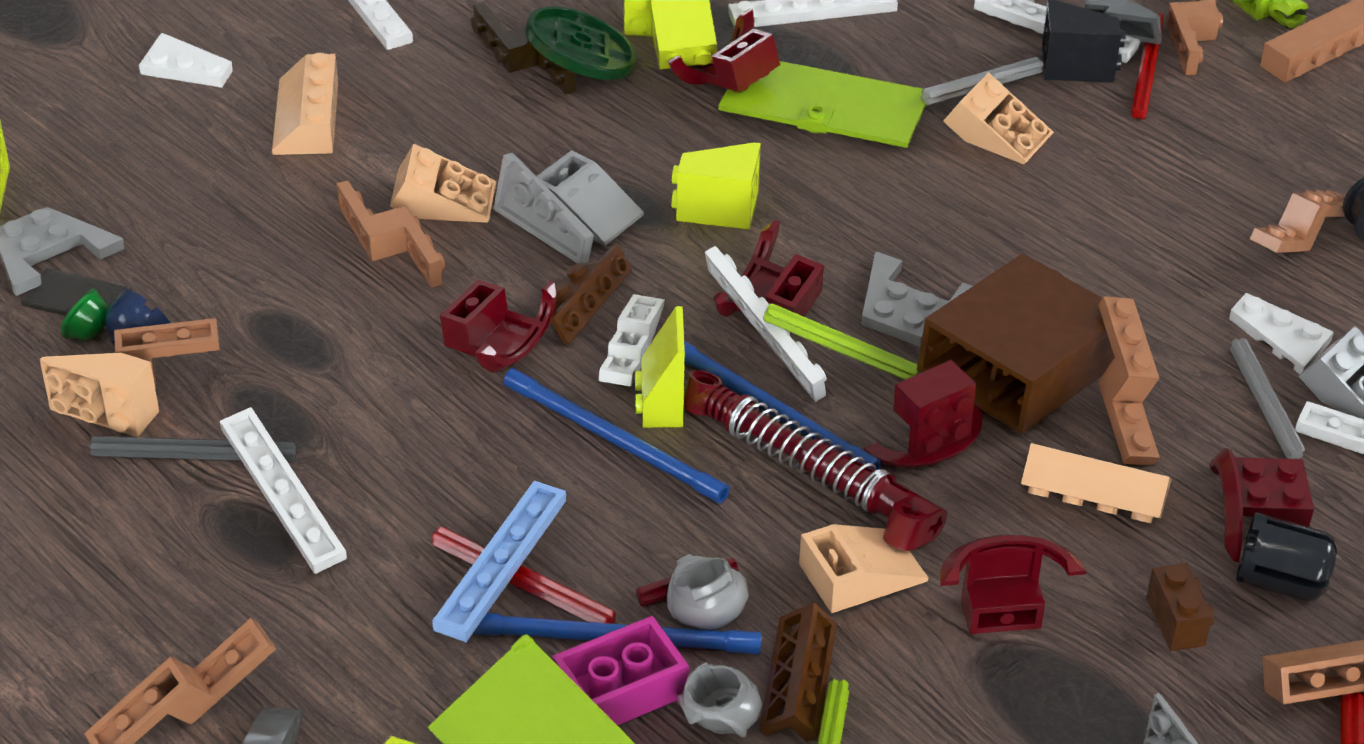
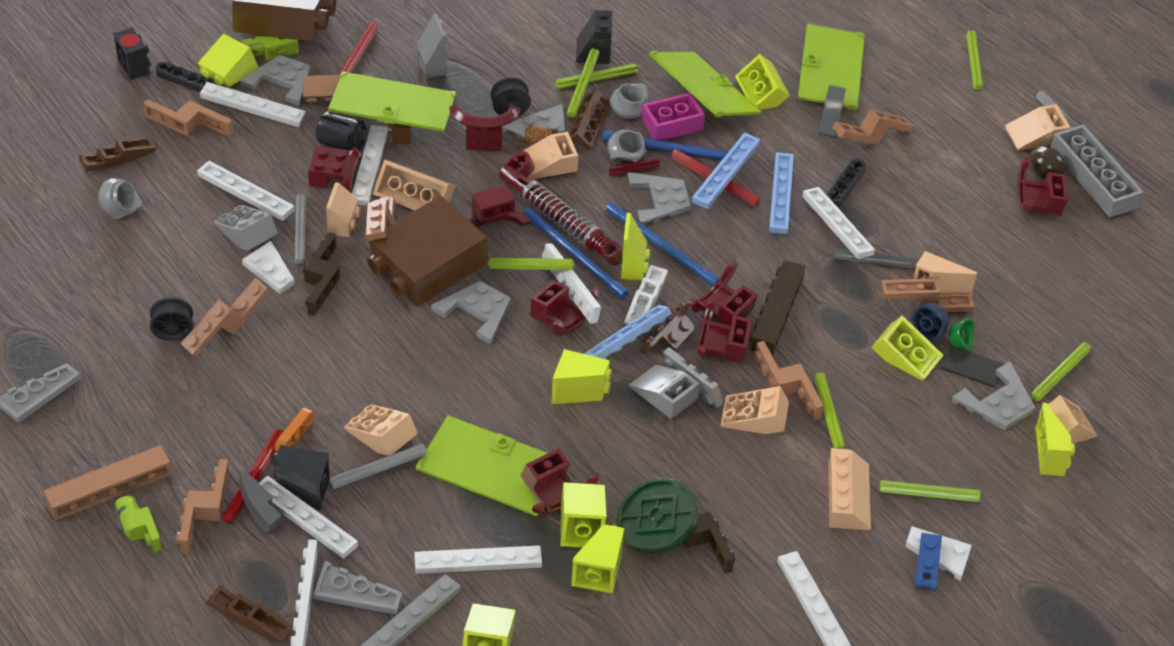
camera: 175 degrees left, 5 degrees up
(185, 123) = (929, 491): none -> lime axle
(194, 291) = (907, 349): none -> neon yellow slope
(205, 37) = (928, 560): none -> blue plate
(250, 592) = (846, 183): none -> black beam
(326, 208) = (829, 411): none -> lime axle
(388, 555) = (781, 193): none -> light blue plate
(401, 341) = (778, 305): none -> dark brown brick
(514, 272) = (723, 339): none -> dark red piece
(613, 530) = (667, 195): none -> light grey wing
(663, 260) = (630, 332): none -> light blue plate
(887, 603) = (537, 134): none -> clear orange leg
(900, 654) = (550, 119): none -> light grey wing
(973, 667) = (510, 93): none -> black wheel
(1118, 109) = (296, 429): none -> orange beam
(1192, 320) = (321, 273): none -> dark brown bracket
(1203, 531) = (370, 164): none -> white plate
(1204, 407) = (342, 211): none -> light nougat slope
(1210, 603) = (392, 101): none -> lime door

